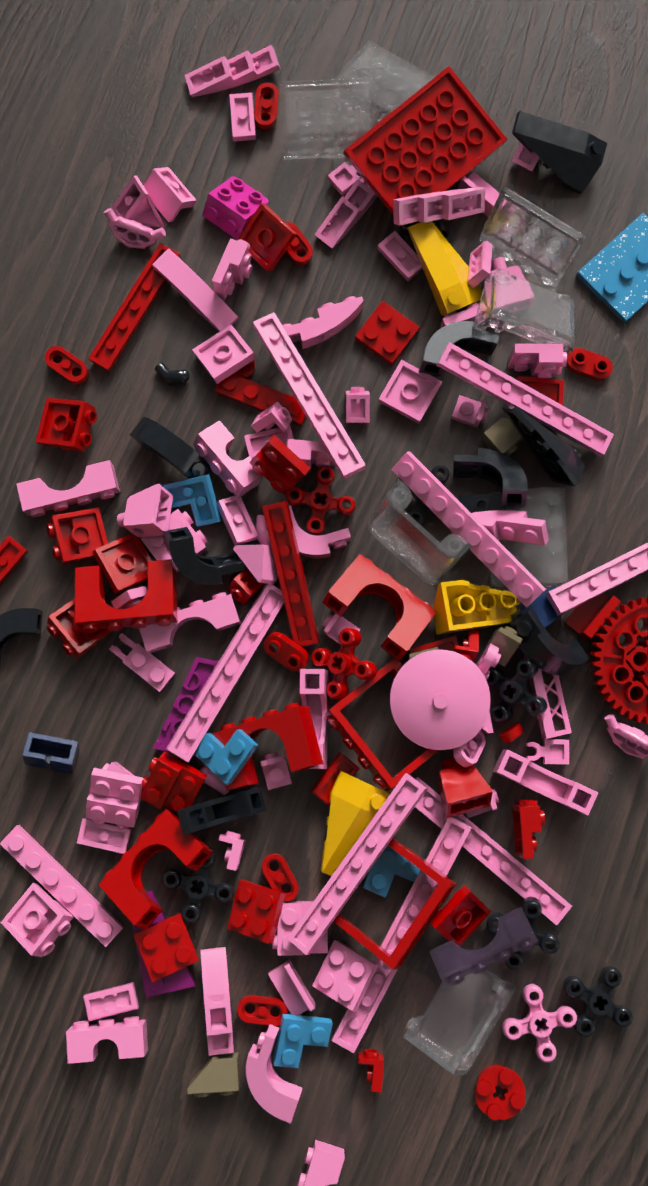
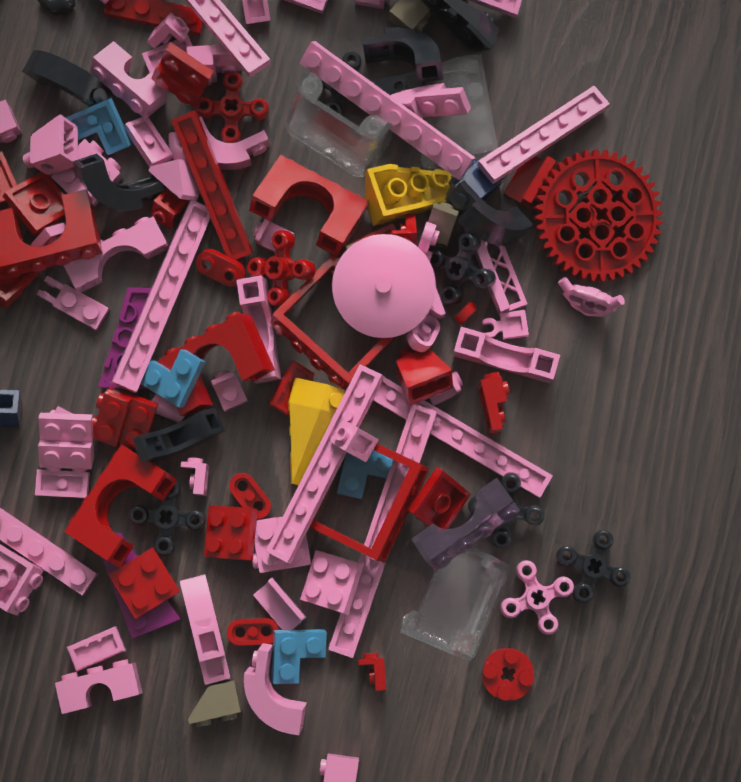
camera: 10 degrees left, 0 degrees up
(389, 848) = (354, 440): none -> bright pink bracket

